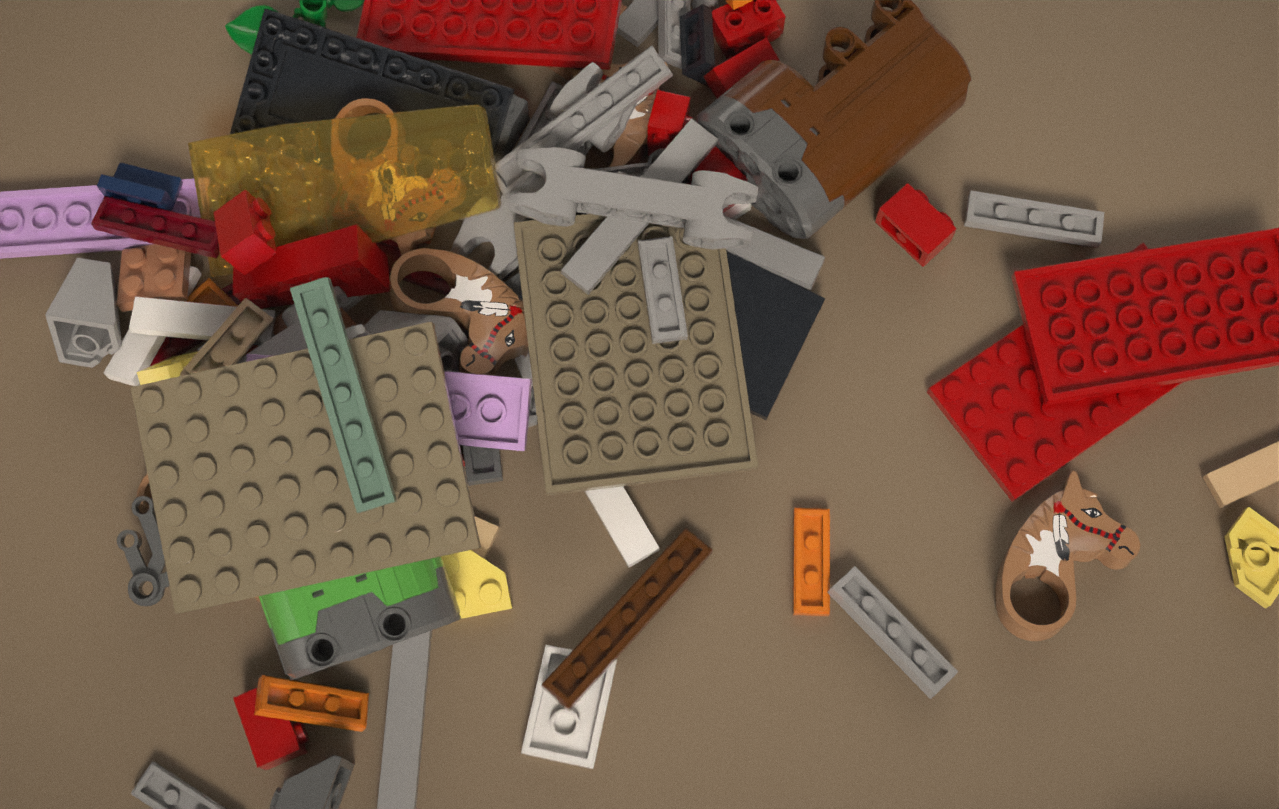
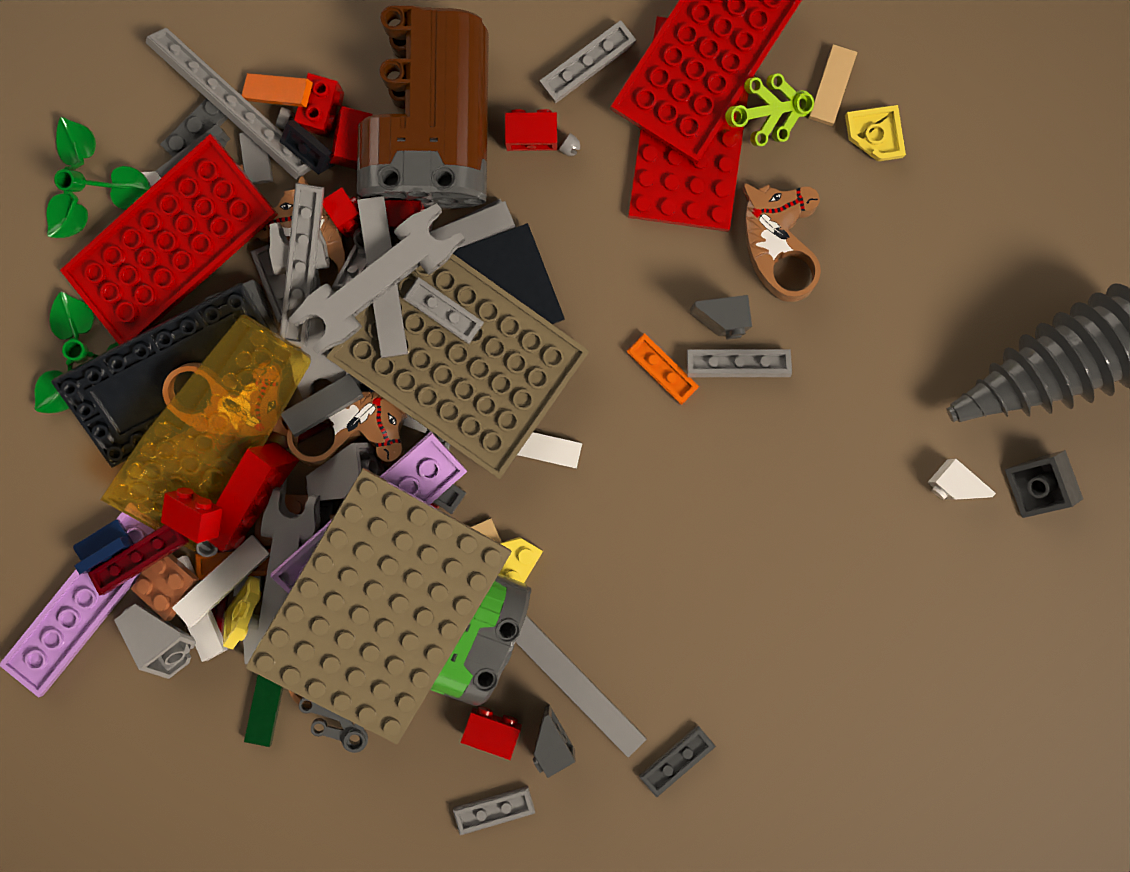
camera: 45 degrees left, 15 degrees up
(102, 478) = (263, 712): none -> dark green tile
(222, 279) = (205, 549): none -> light grey hinge
(231, 339) = (253, 582): tan tile -> none
(311, 703) = (500, 703): orange tile -> none
(343, 395) = (361, 555): sand green plate -> none
(463, 261) = (322, 405): none -> dark grey tile
(565, 734) = (622, 566): white tile -> none
(626, 619) = (604, 494): reddish brown tile -> none
(924, 566) = (724, 315): none -> dark grey slope
(939, 273) = (569, 145): none -> light grey hinge
(1174, 430) = (773, 109): none -> lime plant

